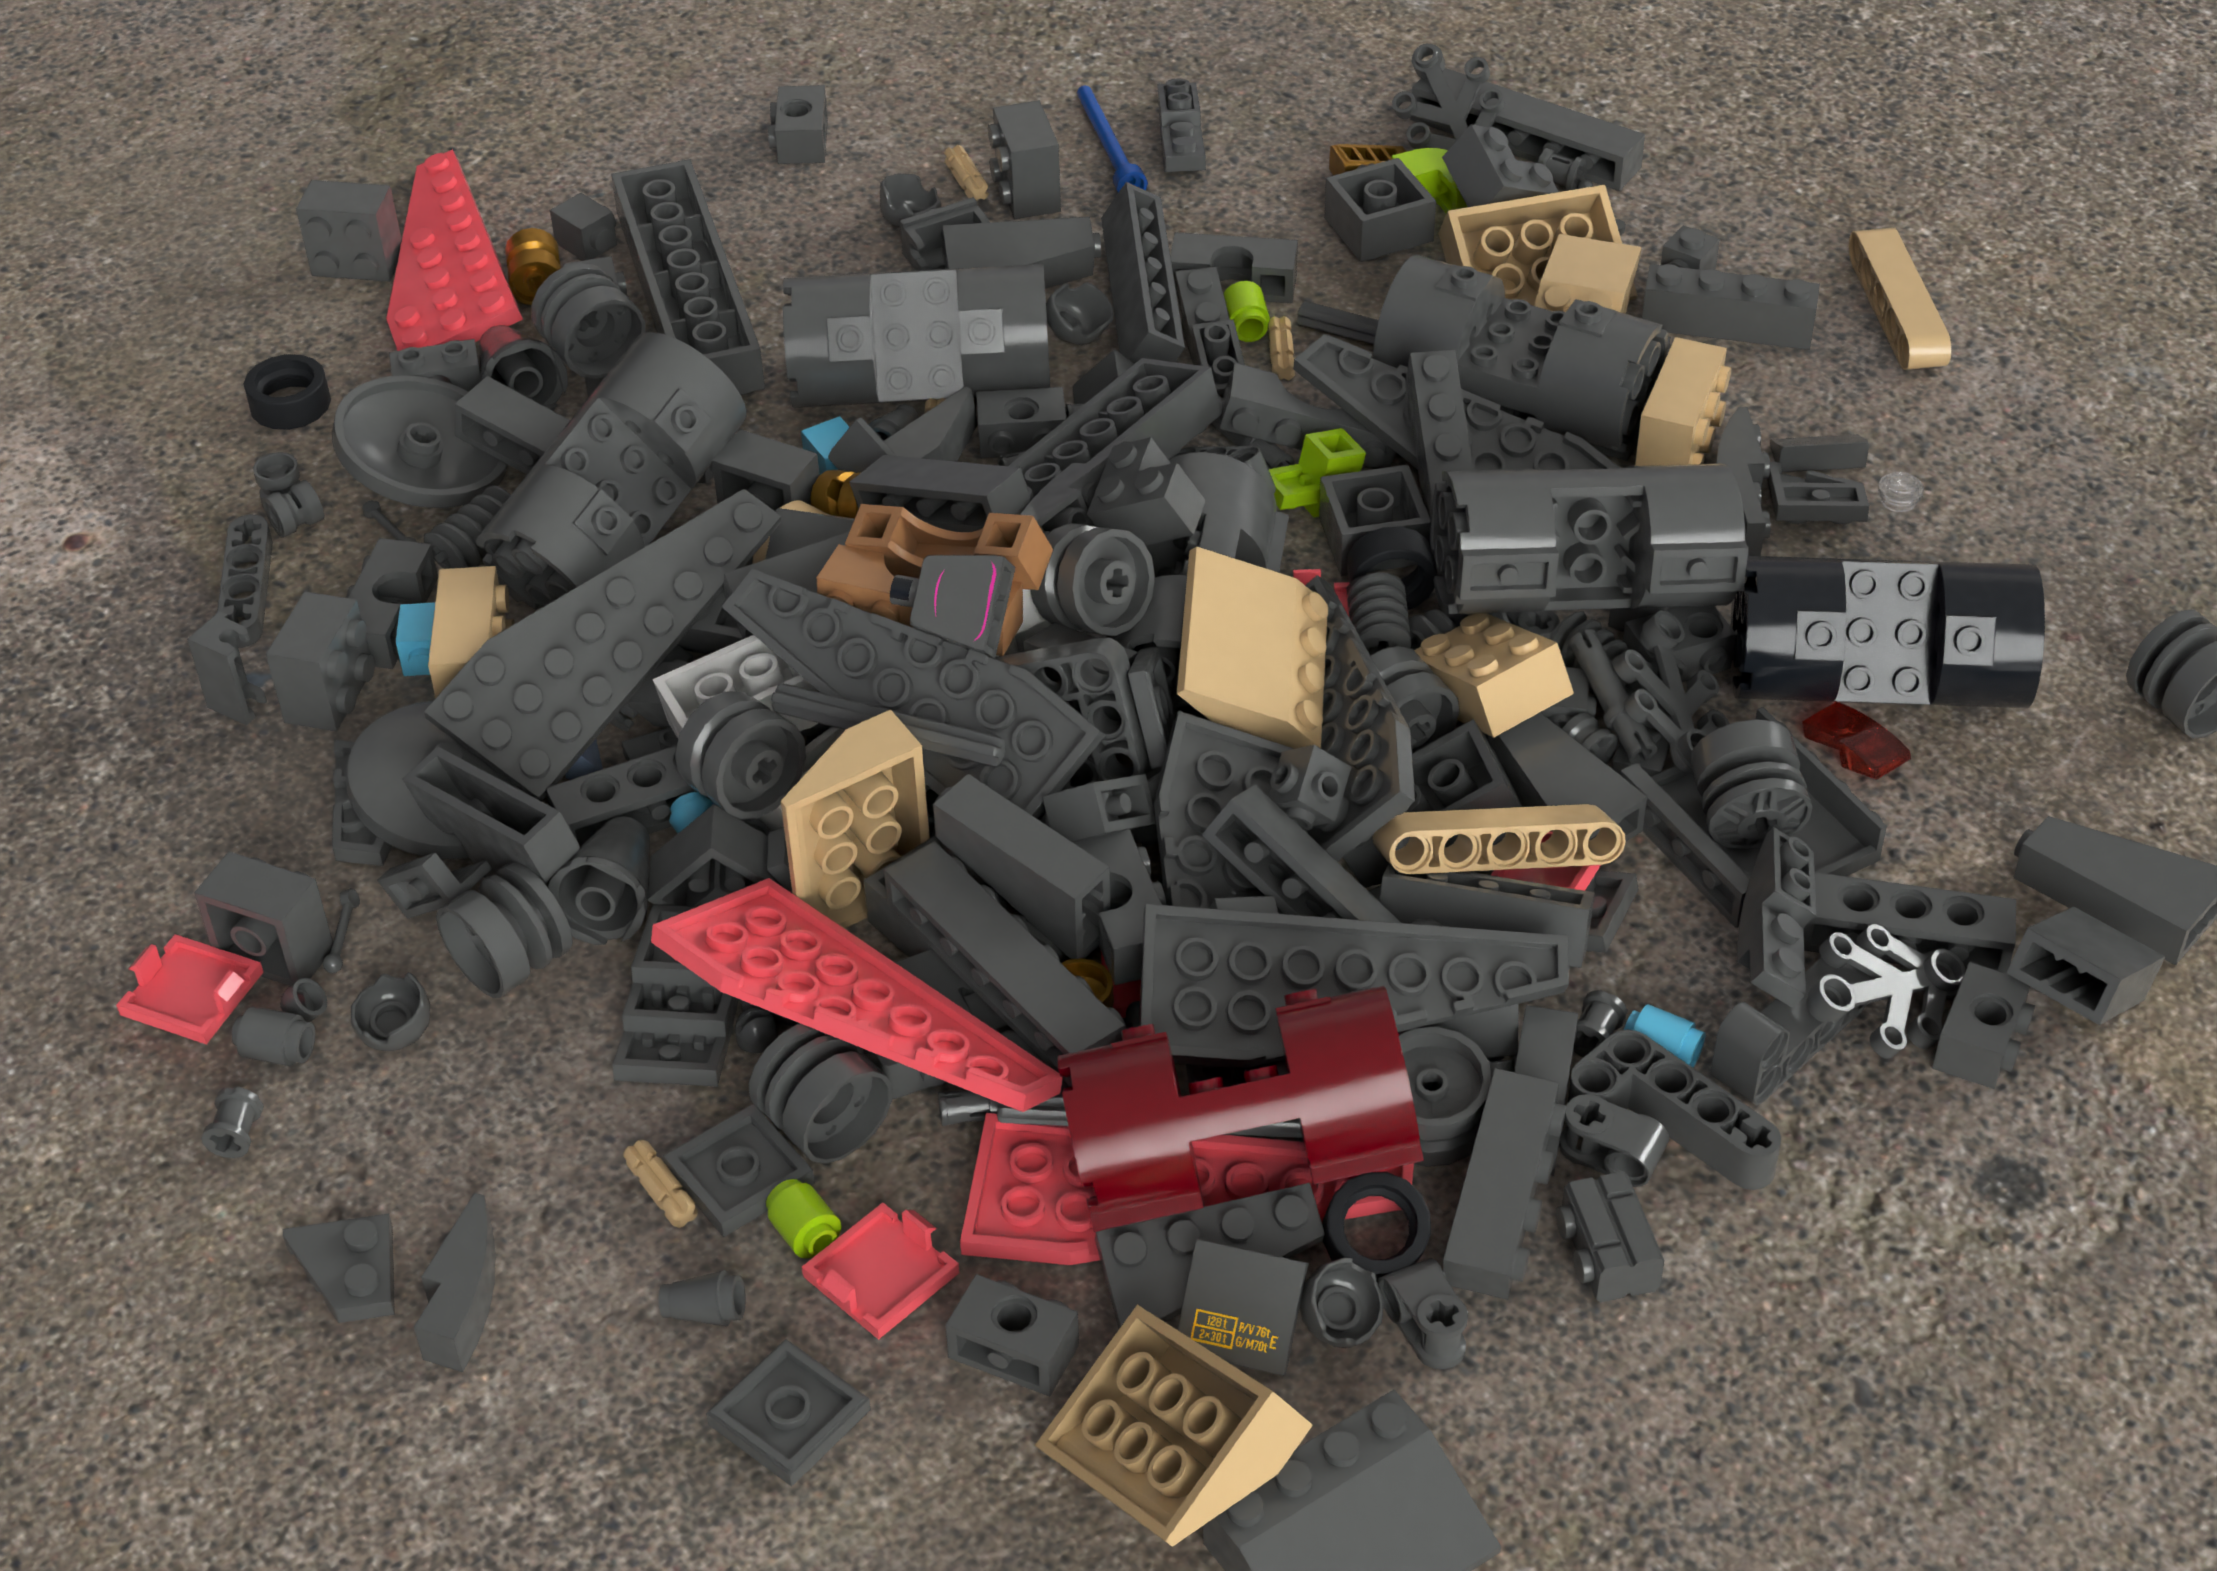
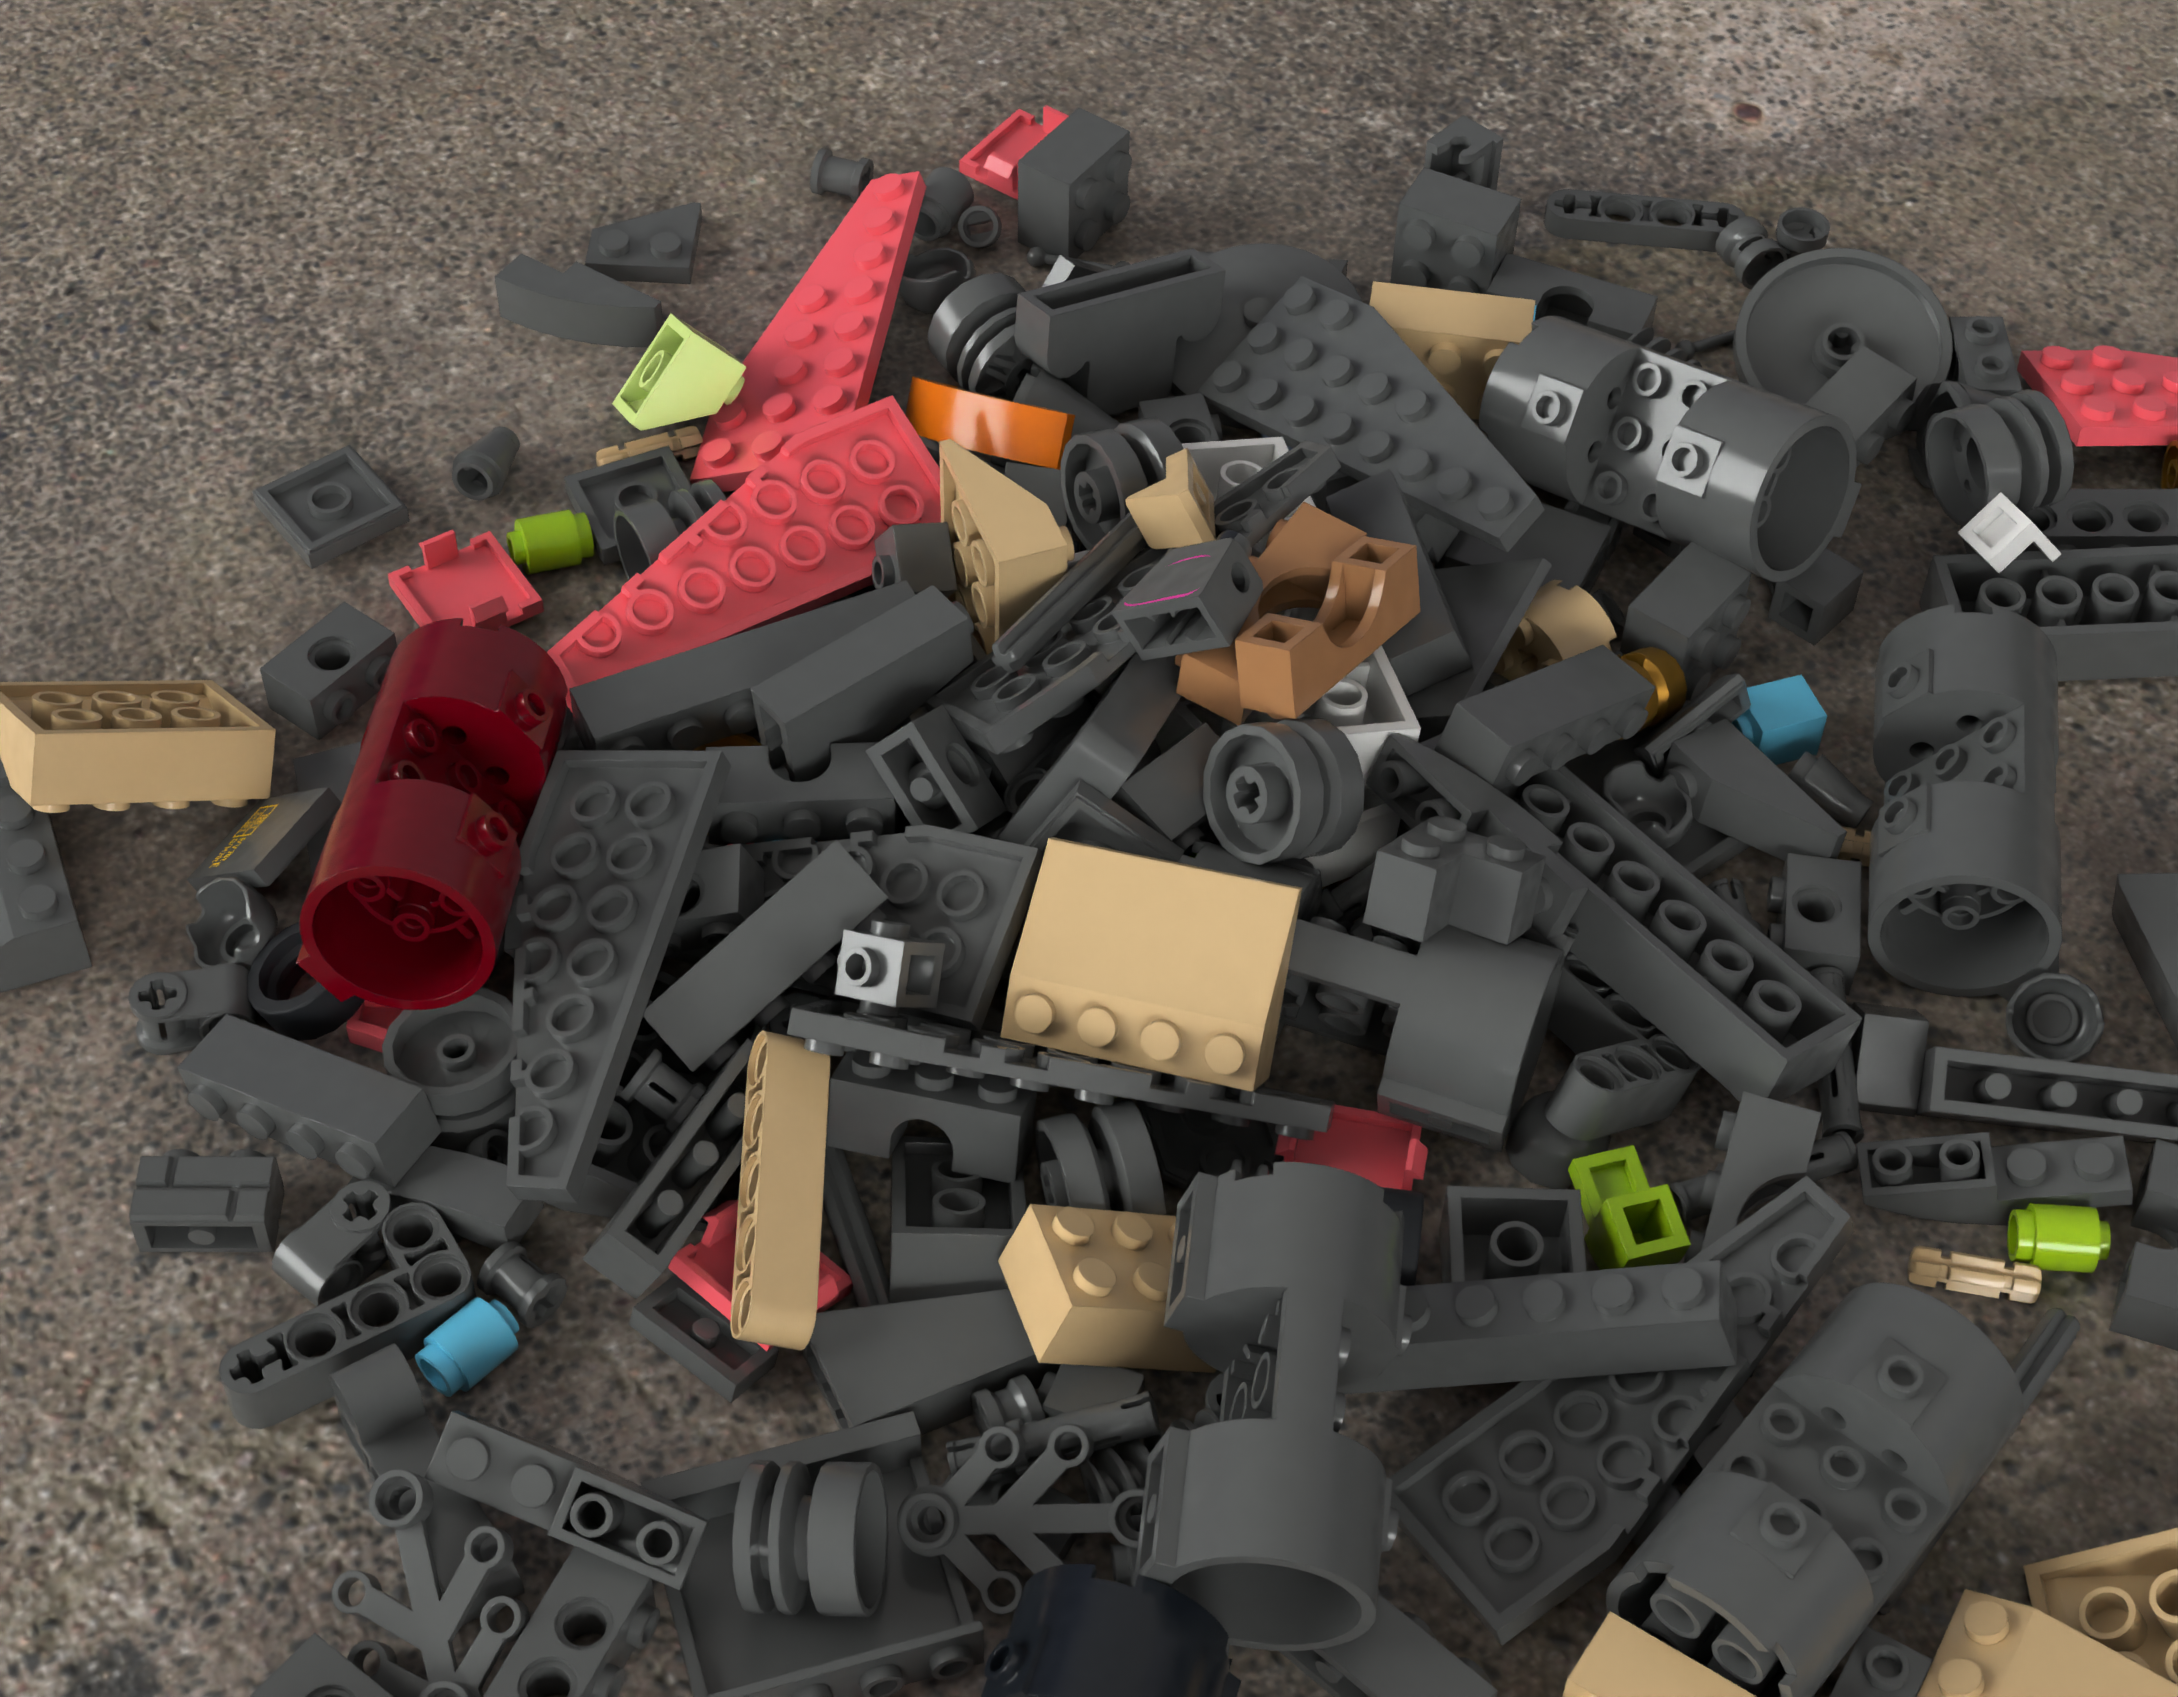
camera: 100 degrees right, 5 degrees up
(291, 410) = (1973, 284): black tyre -> none
(549, 1070) = (823, 341): none -> coral wing
(588, 1155) = (679, 378): none -> yellowish green slope
(623, 919) = (989, 423): none -> orange slope
(668, 315) = (2003, 533): none -> white panel
(830, 650) = (1177, 508): none -> tan slope
(840, 892) = (915, 554): none -> dark grey brick

